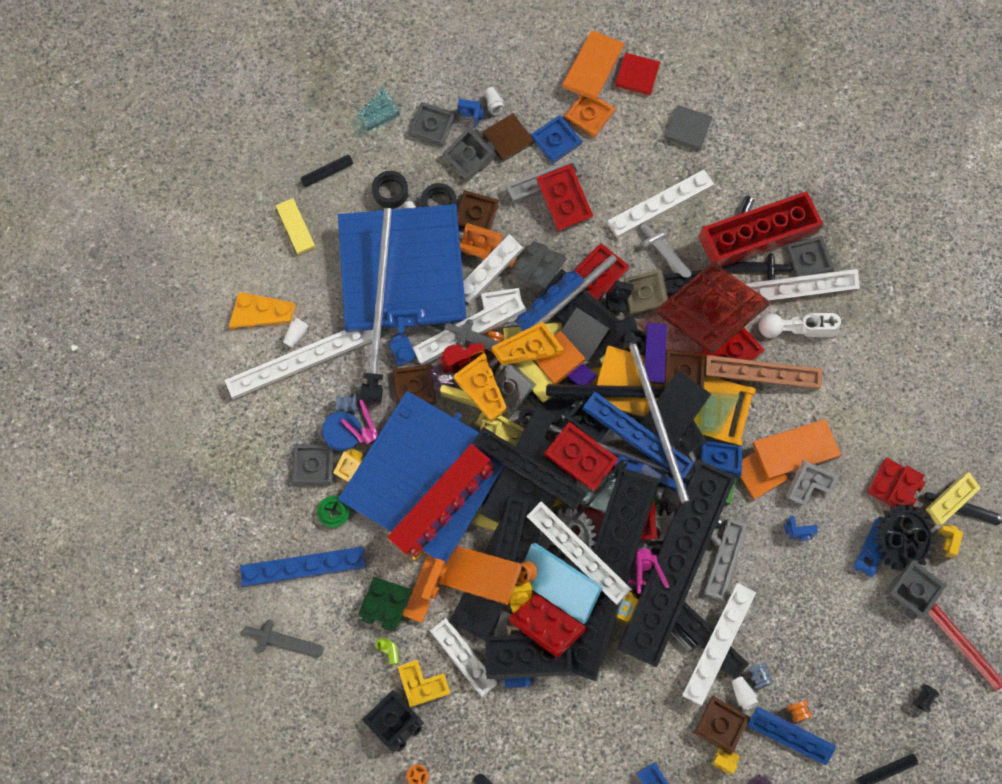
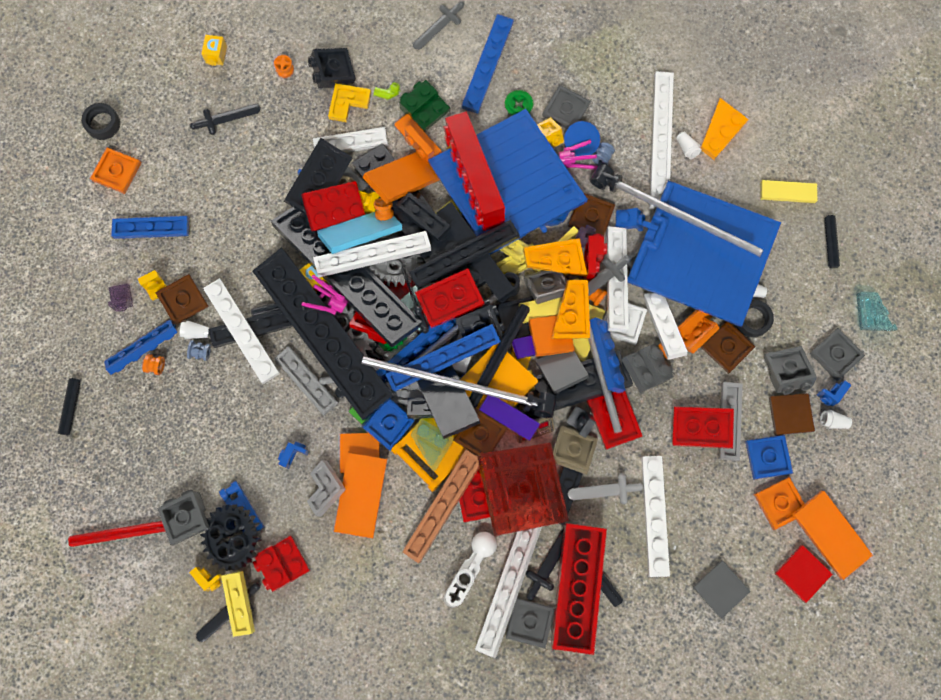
camera: 115 degrees right, 5 degrees up
(383, 178) = (790, 270): black tyre -> none
(649, 471) = (404, 346): clear tile -> none
(926, 691) = (99, 464): black bush -> none

